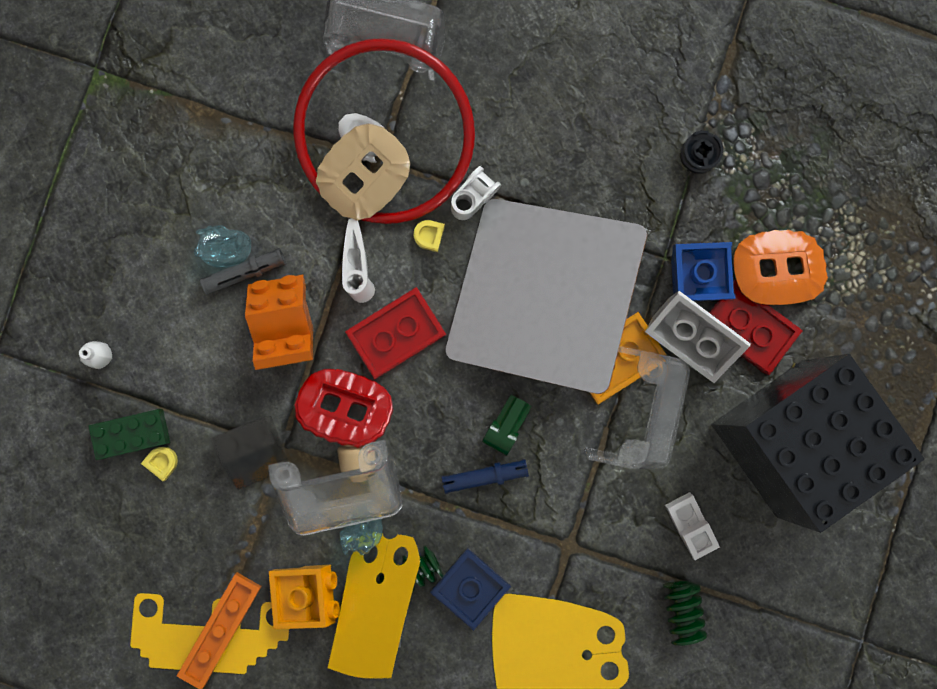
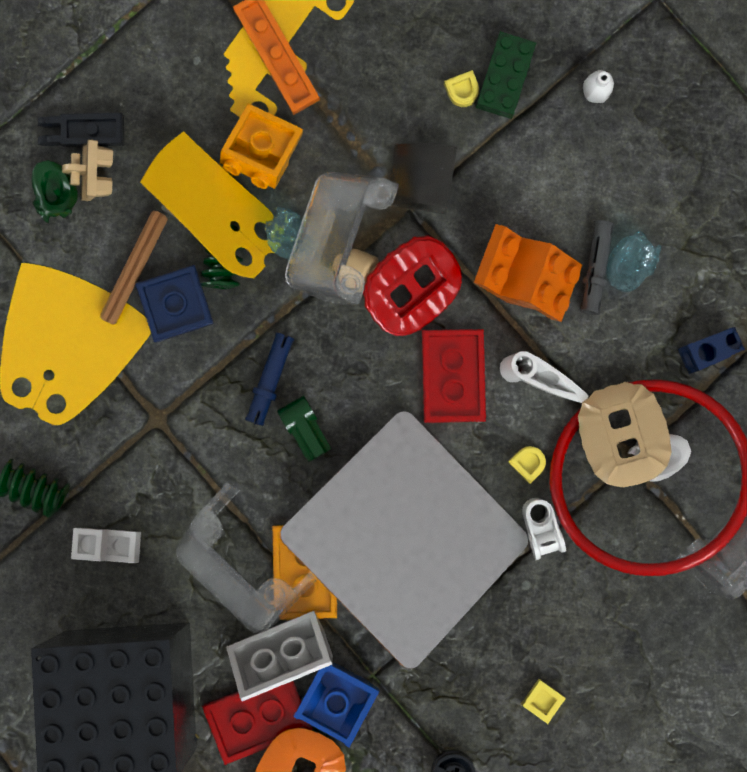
camera: 120 degrees right, 0 degrees up
(256, 145) = (711, 350): none -> dark blue leg
(460, 639) = (133, 267): none -> medium nougat axle
(604, 117) = (543, 701): none -> light yellow tile

